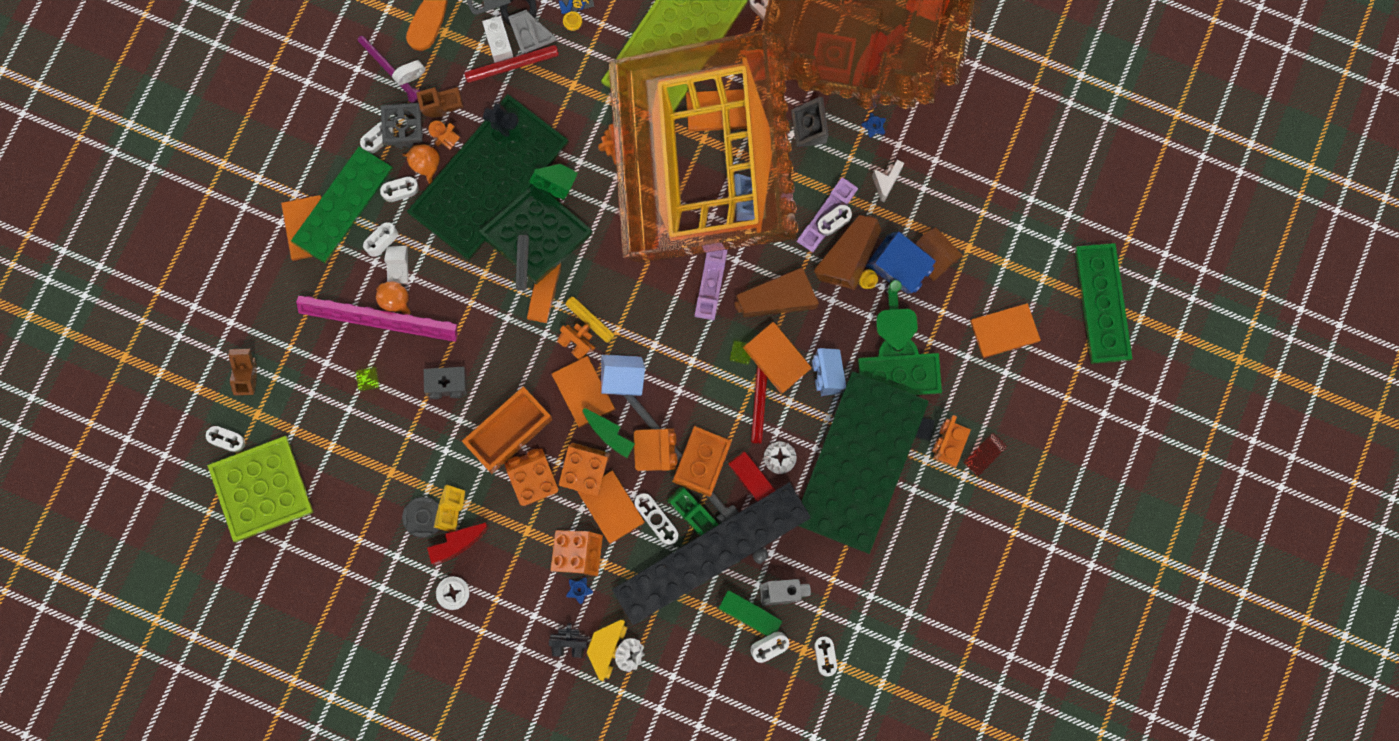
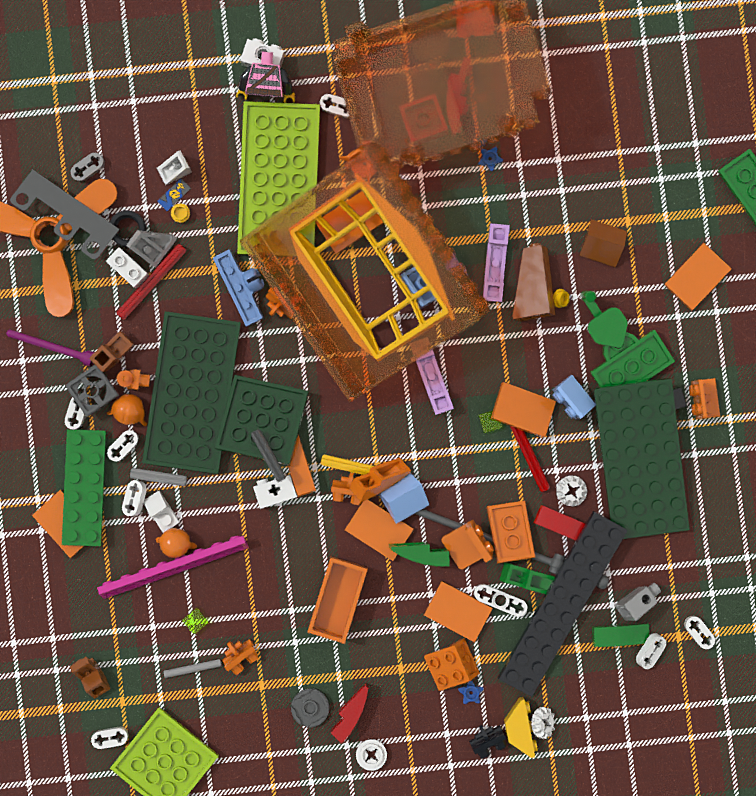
camera: 25 degrees left, 10 degrees up
(338, 420) = (192, 668): none -> light grey bar
(378, 433) = (237, 653): none -> orange hips
(408, 72) = (69, 341): white beam -> none
(413, 233) = (160, 477): none -> light grey axle
(436, 377) = (268, 578): dark grey brick -> none
(448, 509) = (327, 689): yellow slope -> none
(498, 304) = (266, 498): none -> white brick
(501, 119) = (175, 340): black hips -> none
(531, 477) = (378, 624): orange bracket -> none
(554, 179) = (251, 364): green slope -> none
(584, 469) = (418, 593): orange bracket -> none
(587, 110) = (241, 286): none -> medium blue plate
(609, 343) = (379, 479): none -> orange slope
(782, 295) = (496, 353): dark orange slope -> none
(810, 123) = (436, 189): dark grey slope -> none
(837, 223) = (500, 261): white beam -> none
(885, 182) = (529, 206): white slope -> none
(902, 261) = (581, 270): blue slope -> none
(985, 454) = (738, 392): clear red slope -> none

